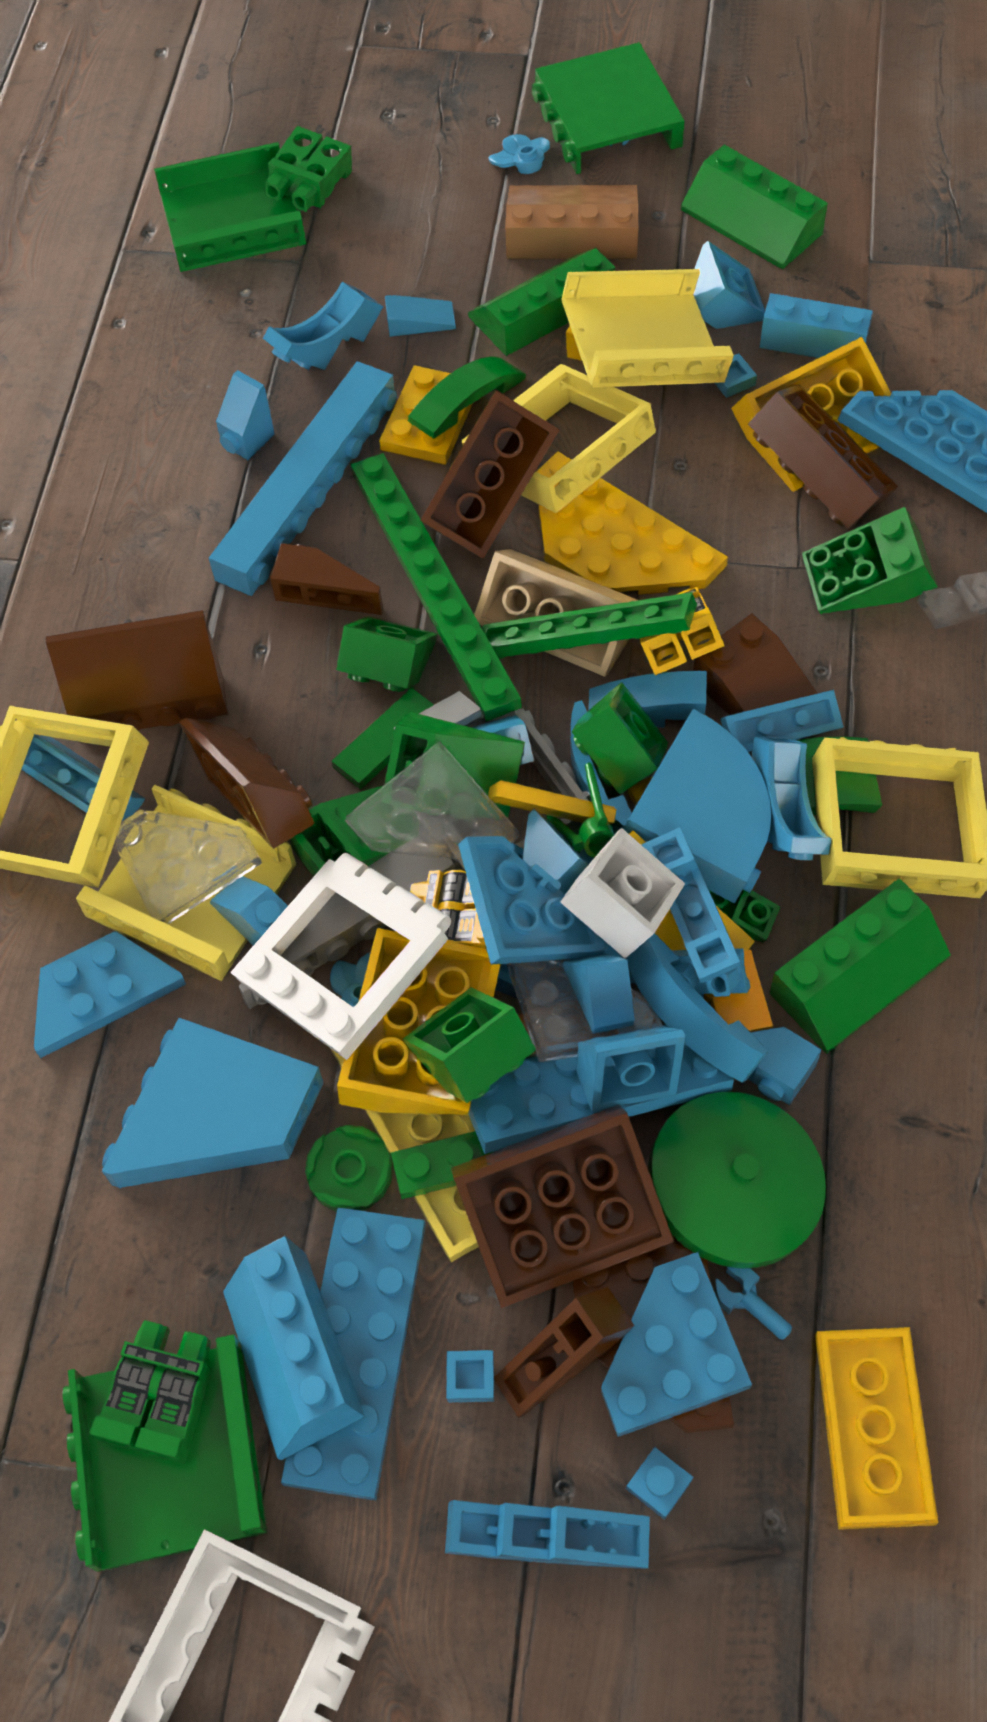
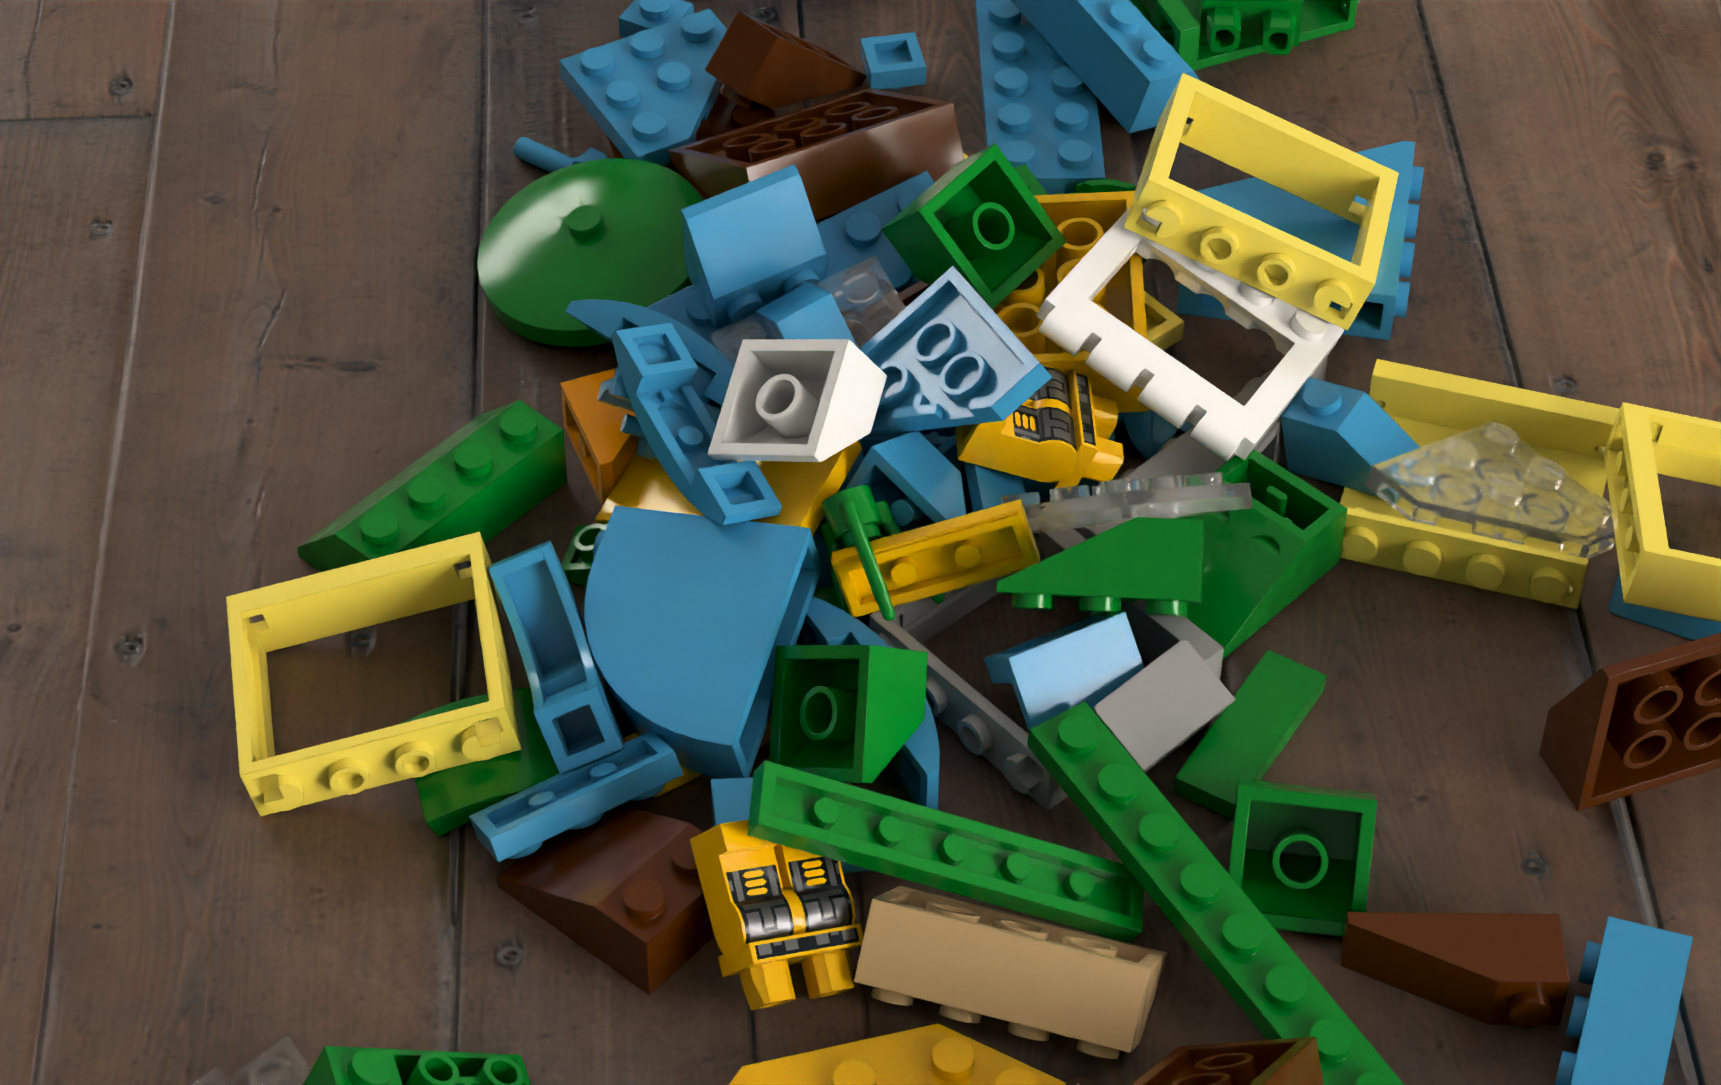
camera: 165 degrees right, 15 degrees down
(96, 989) = (1552, 348): dark azure wing -> none
(250, 781) = (1438, 546): reddish brown slope -> none
(315, 1065) = (1284, 158): none -> light yellow window
(785, 1065) = (539, 361): dark azure slope -> none
(875, 1429) = (411, 89): yellow tile -> none

